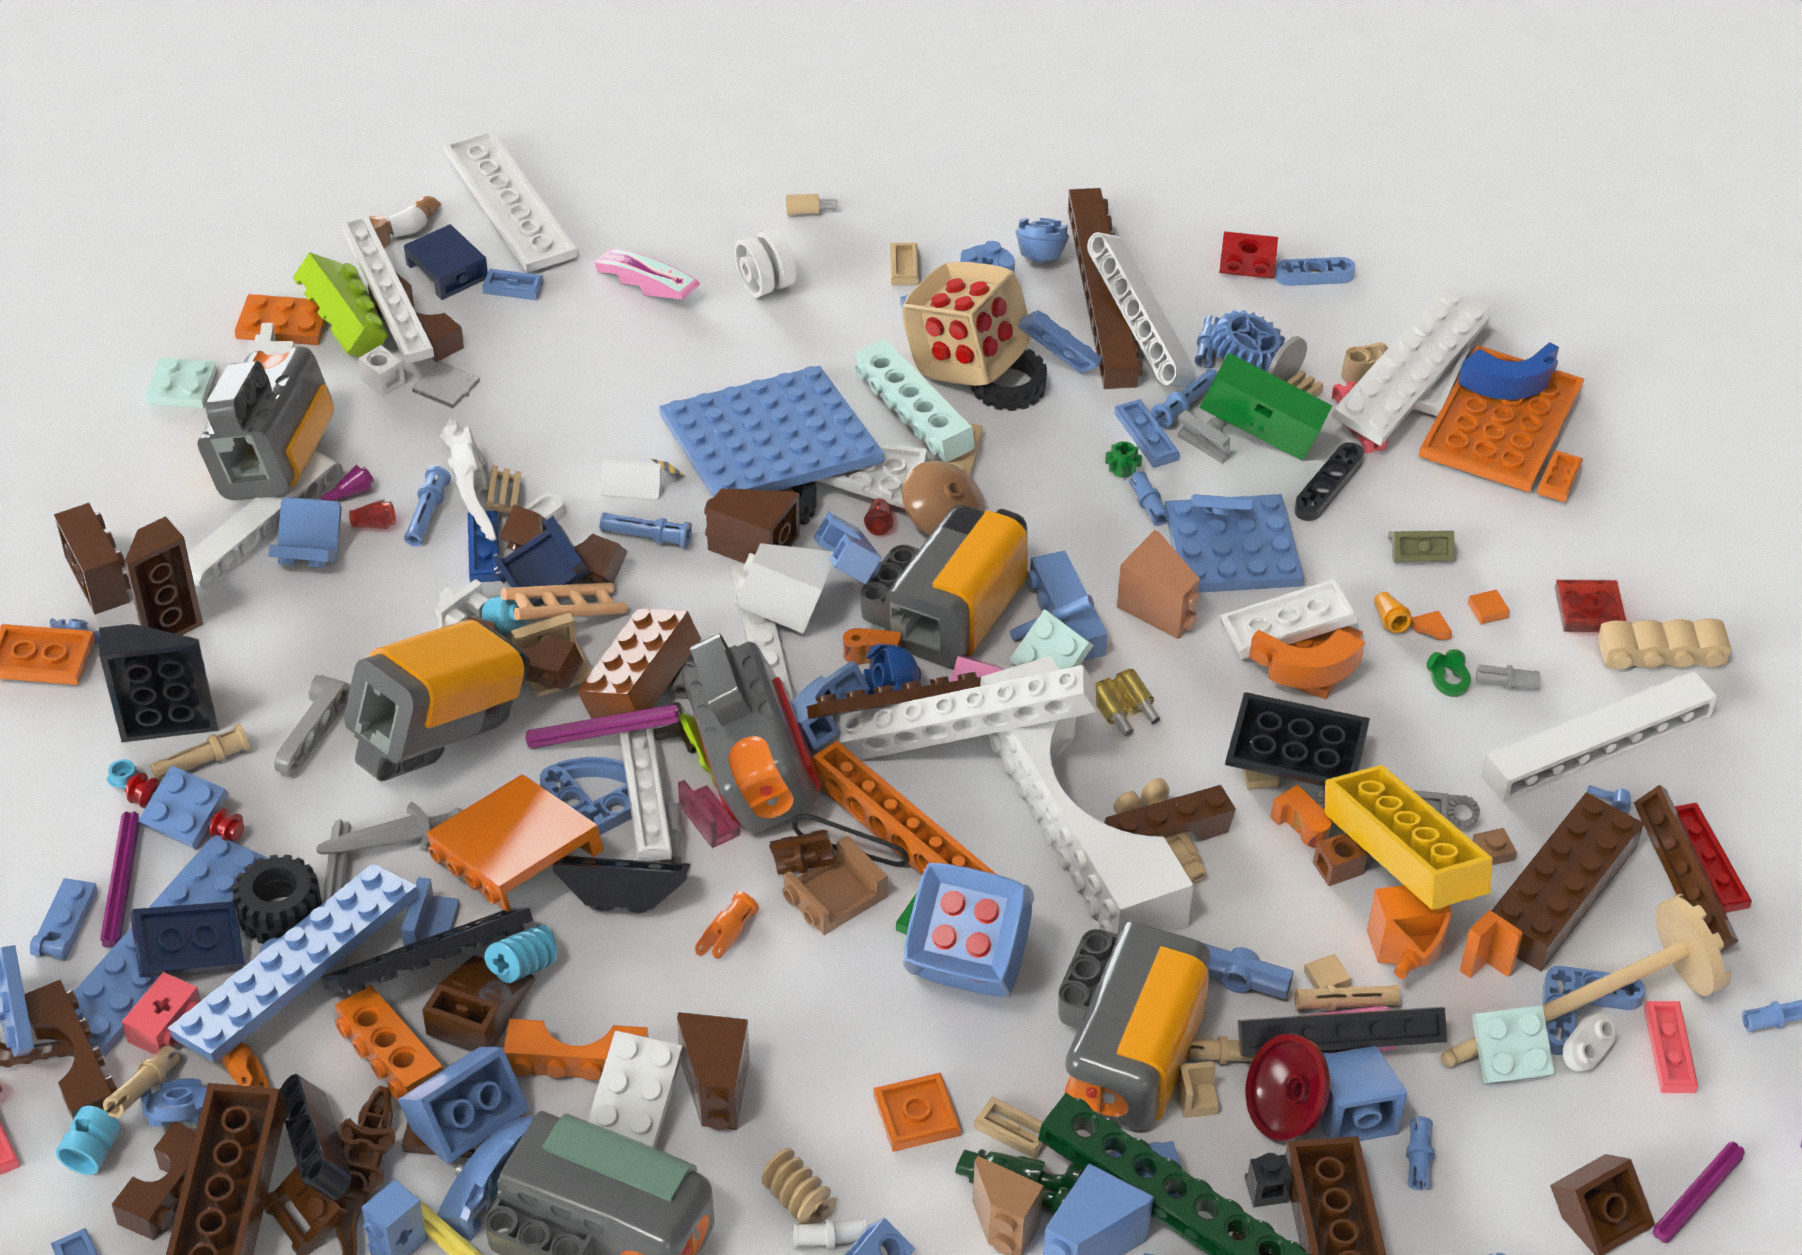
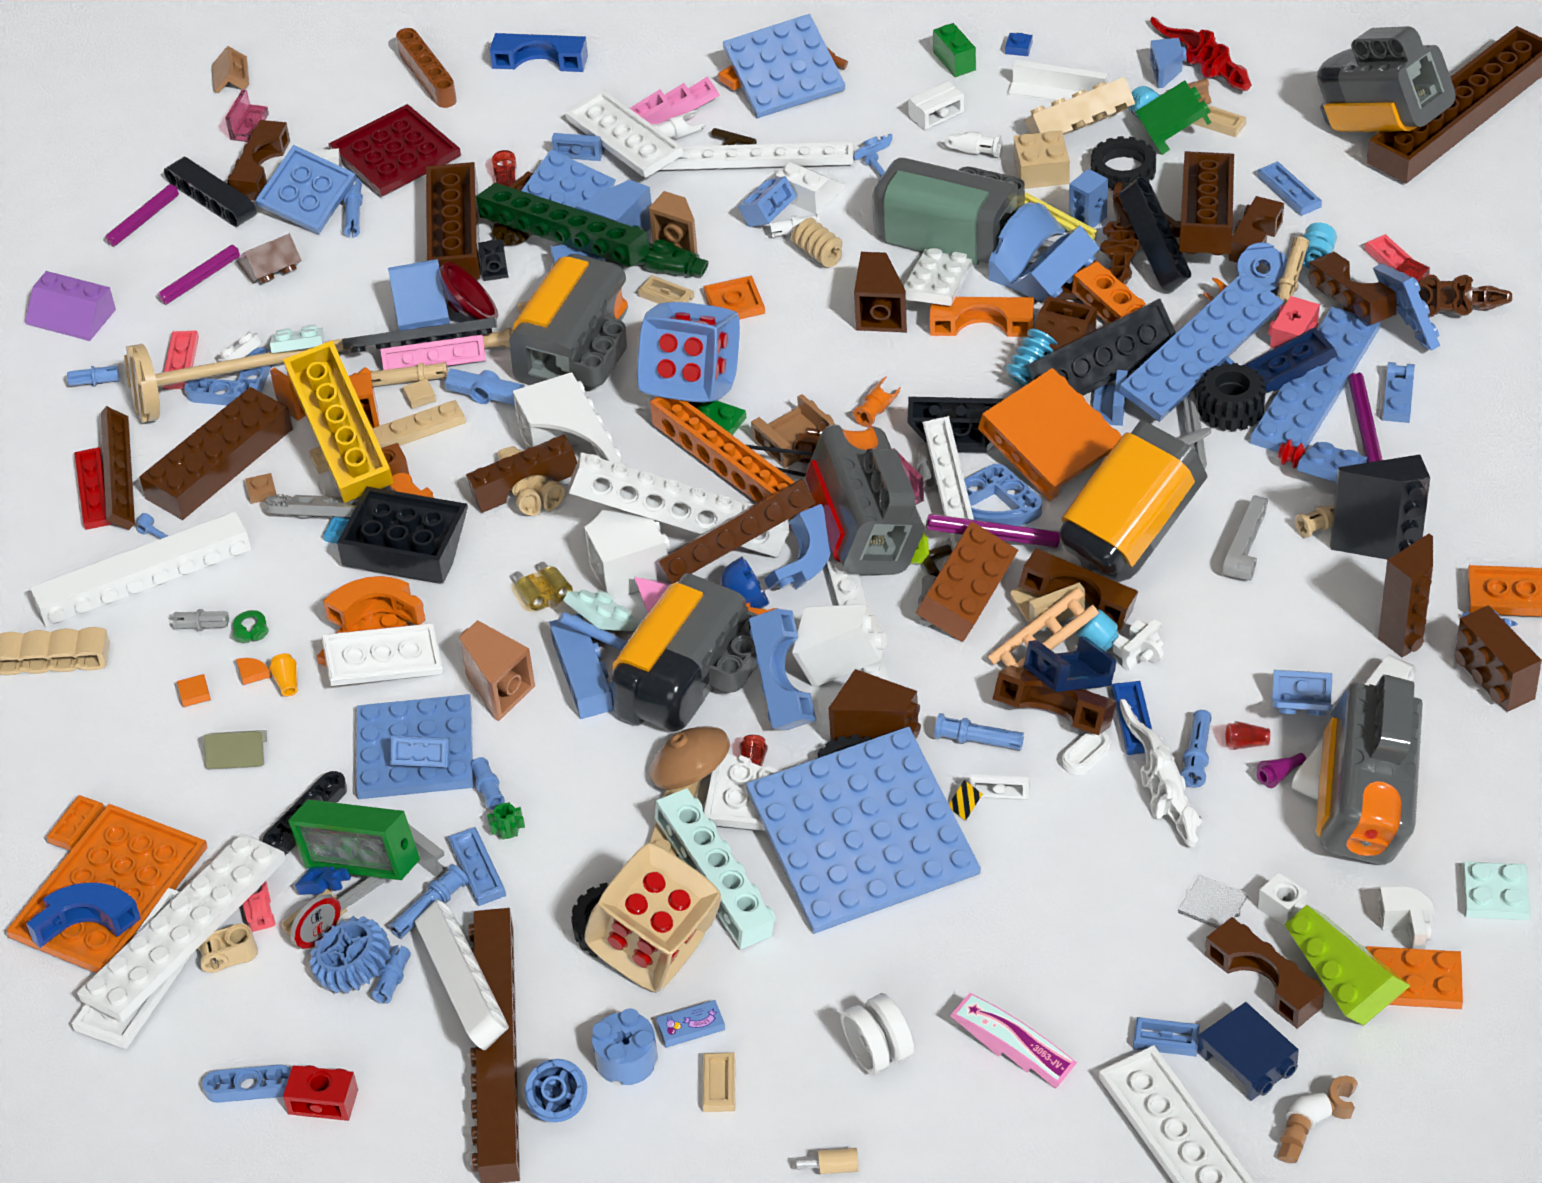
camera: 175 degrees left, 0 degrees up
(387, 289) = (1301, 971): white plate -> none
(505, 477) = (1122, 746): tan tile -> none
(1059, 341) = (553, 922): medium blue plate -> none
(1320, 925) = (408, 429): none -> tan plate
(1420, 1153) = (381, 286): medium blue pin -> none
(1588, 604) = (101, 688): clear red plate -> none

